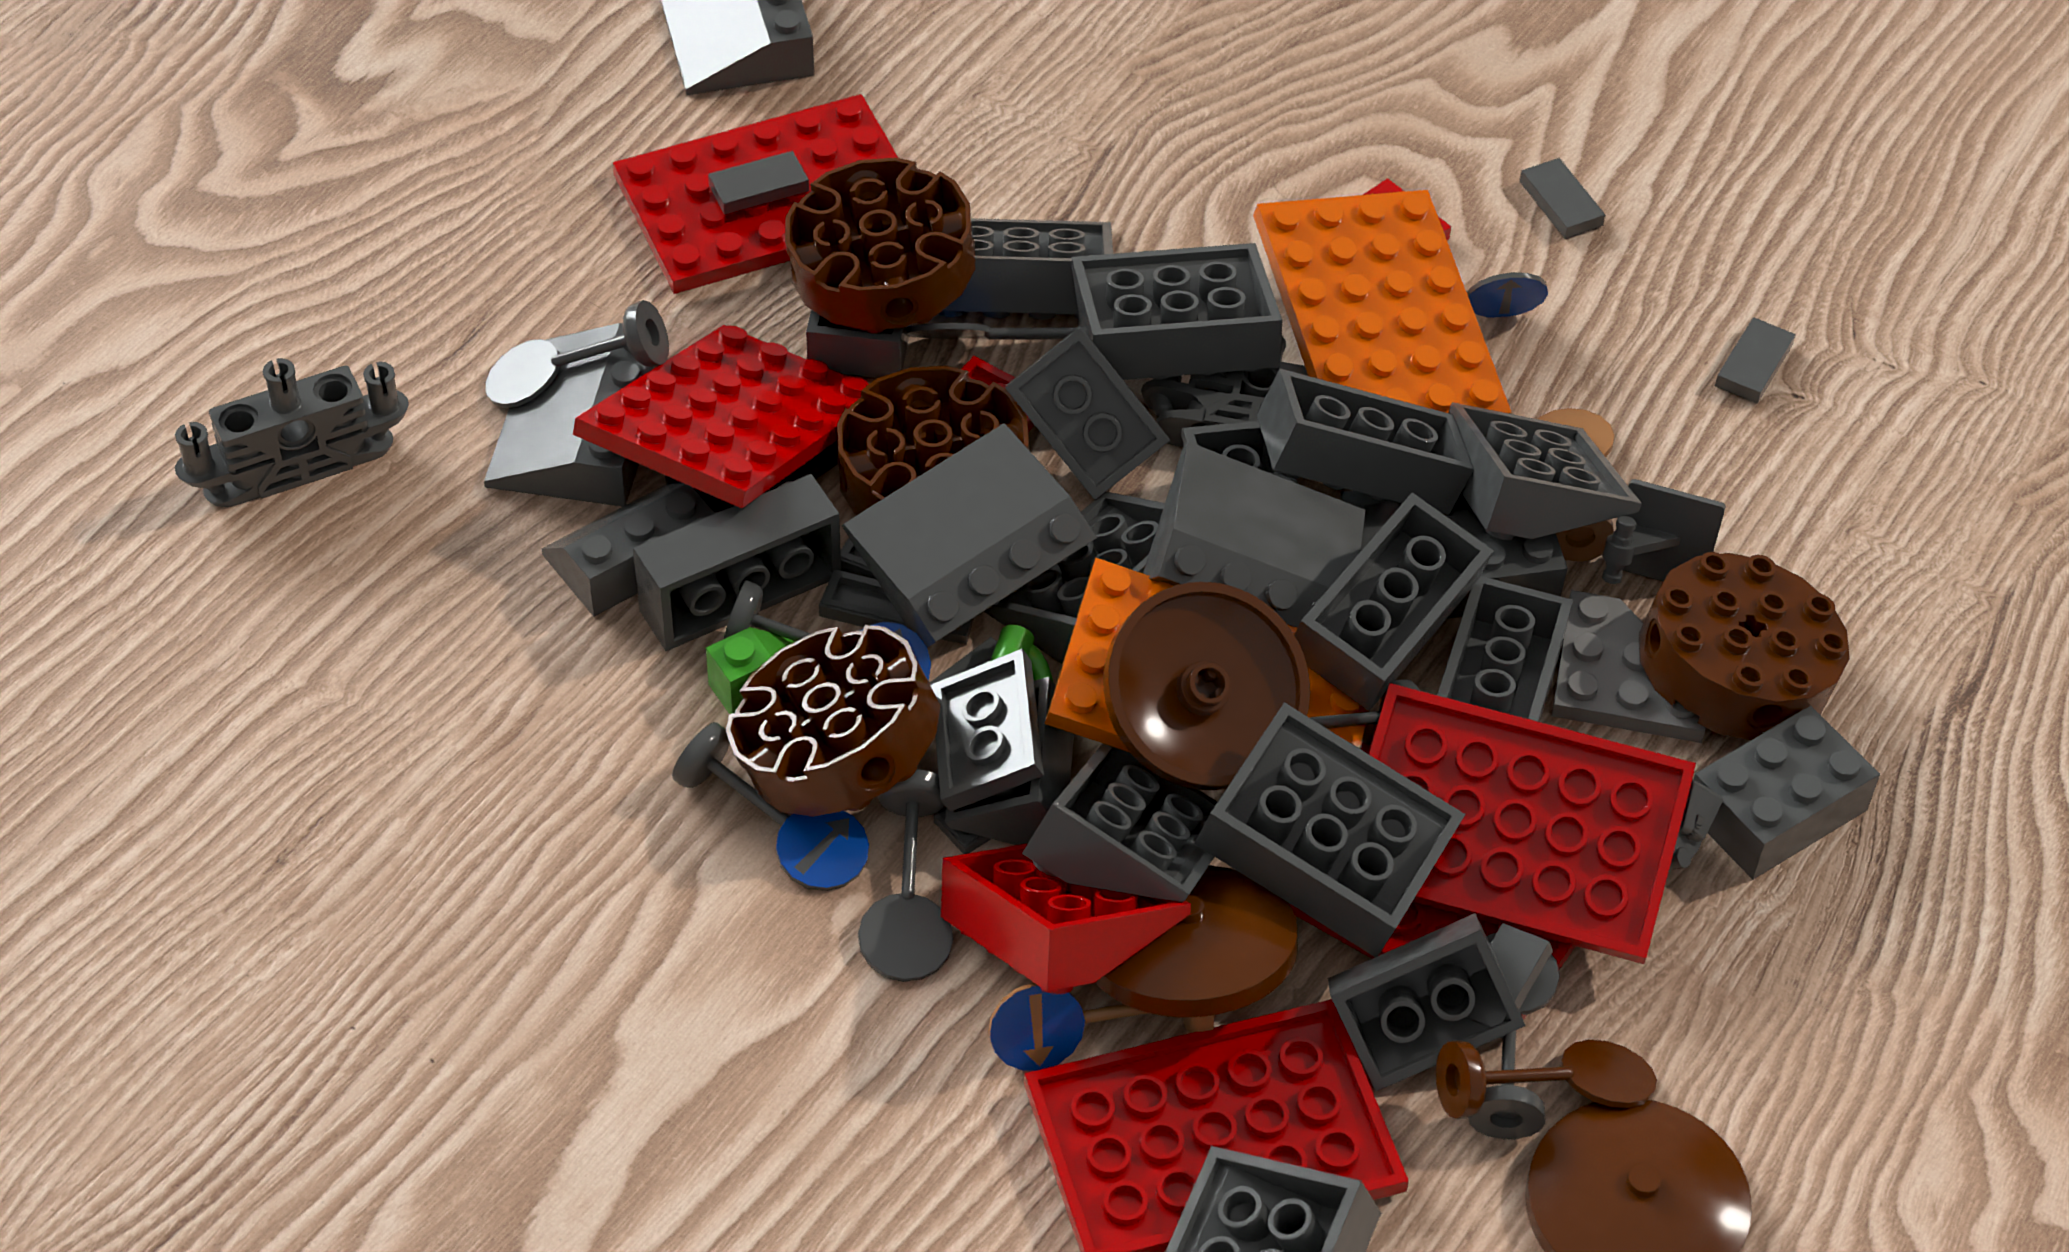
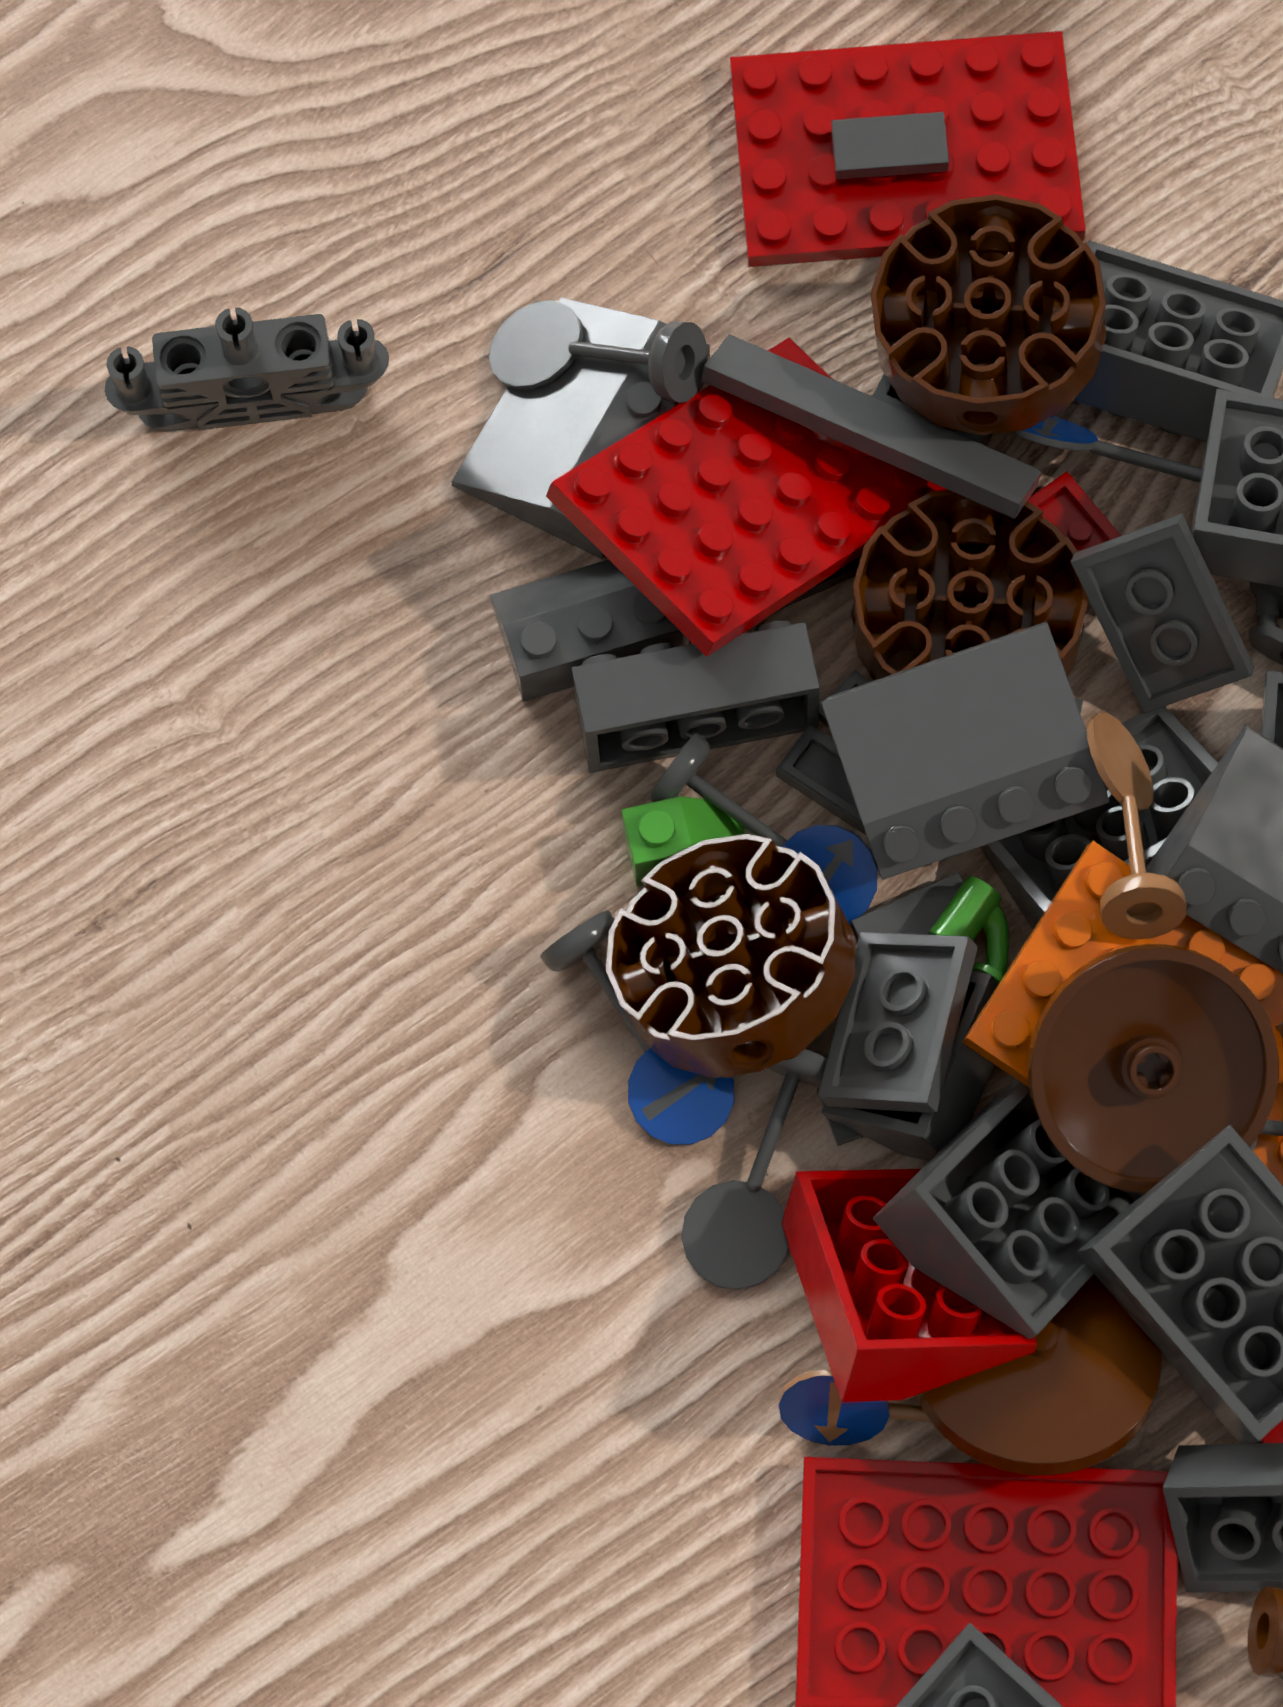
camera: 25 degrees right, 20 degrees up
(813, 346) = (871, 426): none -> dark grey tile
(1147, 569) = (1143, 902): none -> medium nougat piece

